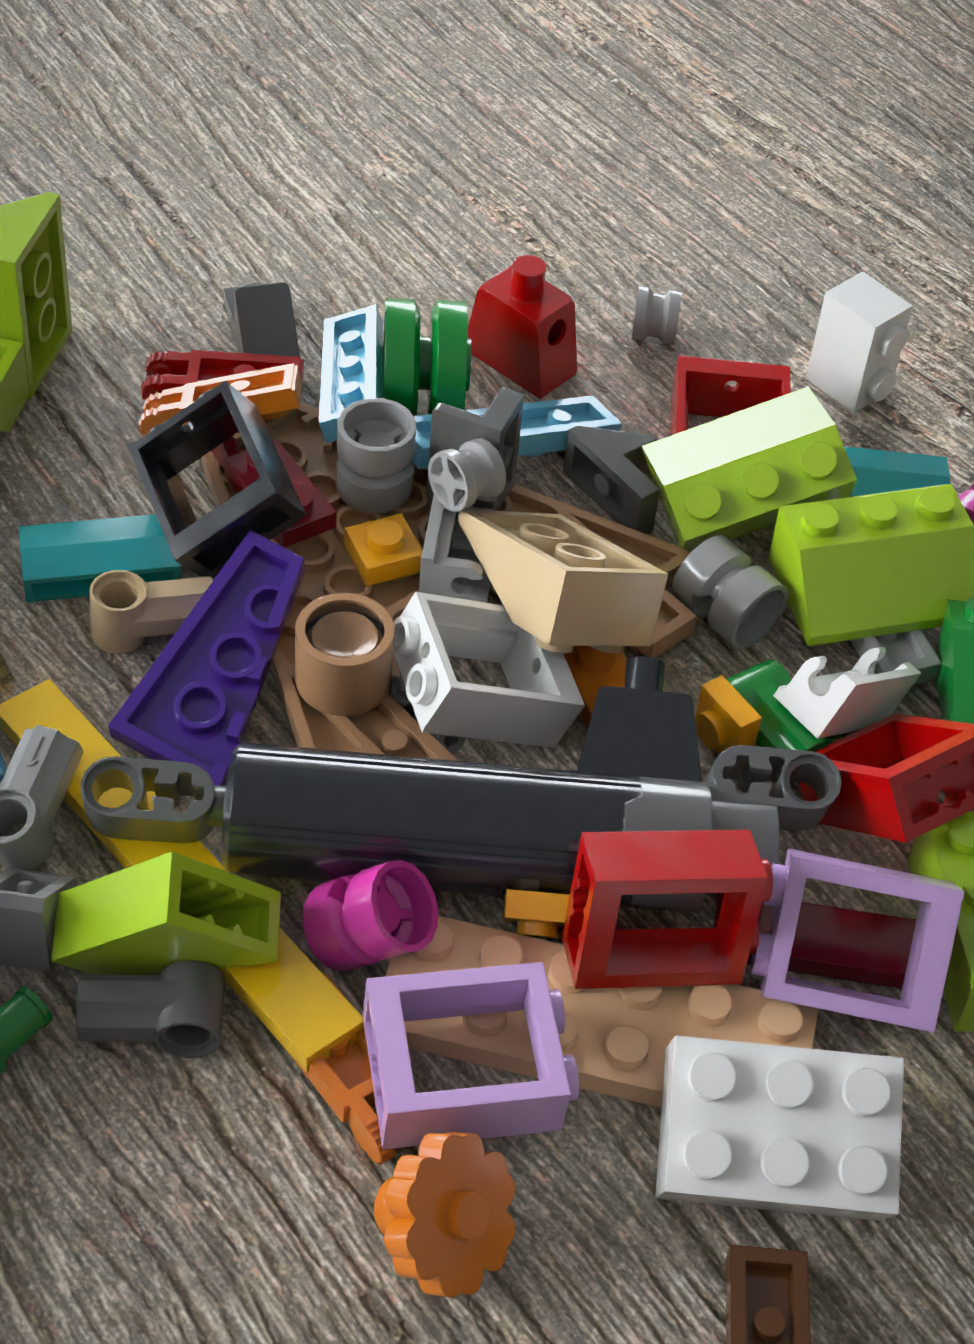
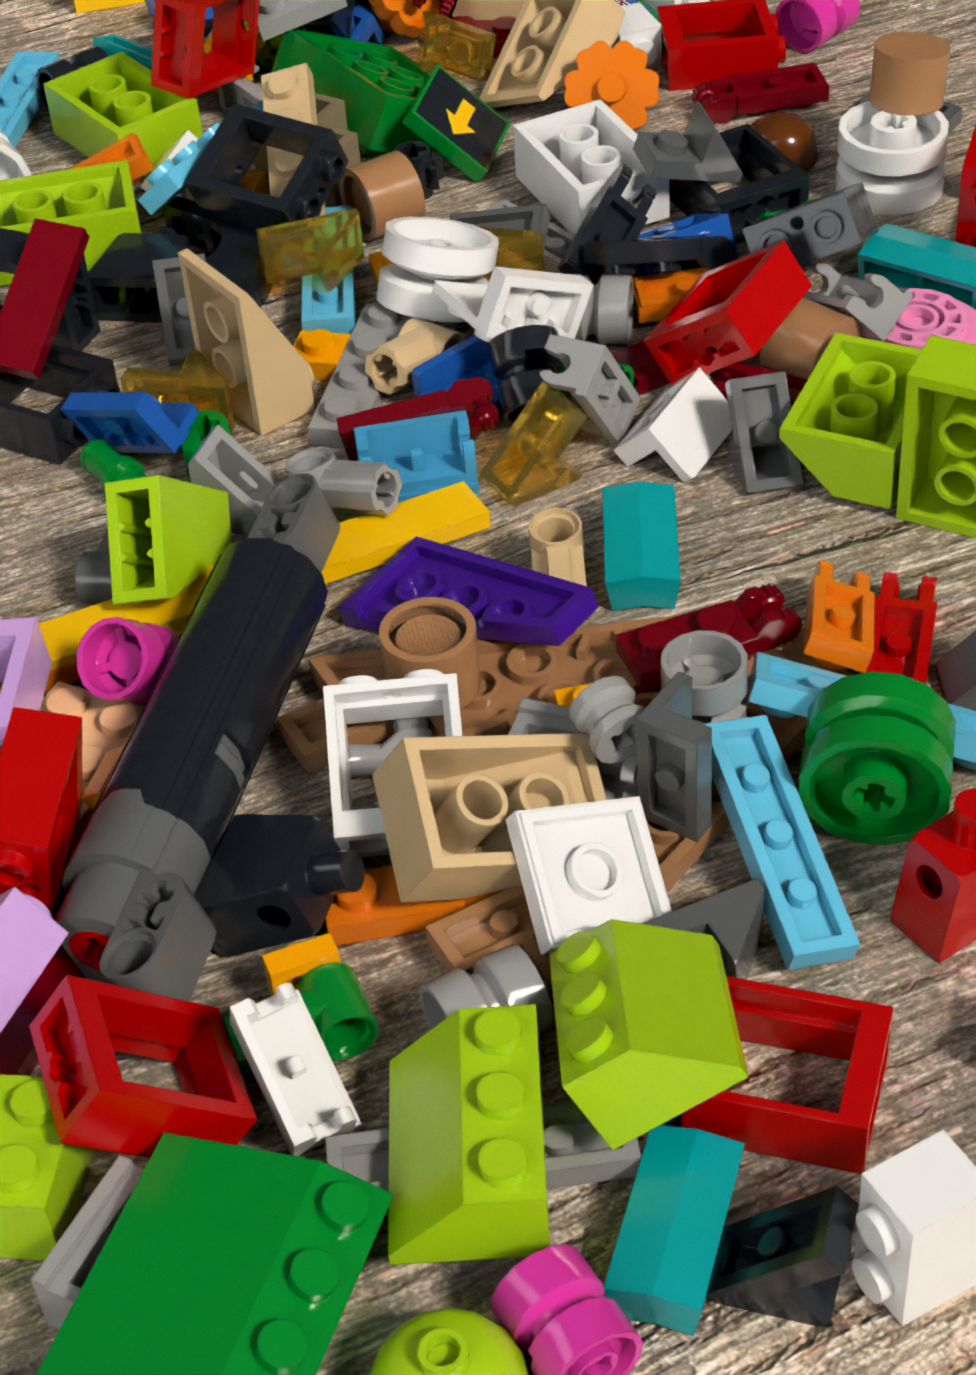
camera: 110 degrees right, 5 degrees down
(262, 507) = (678, 574): black window -> none
(601, 515) = (586, 867): none -> white tile
(888, 405) = (787, 1258): none -> black slope

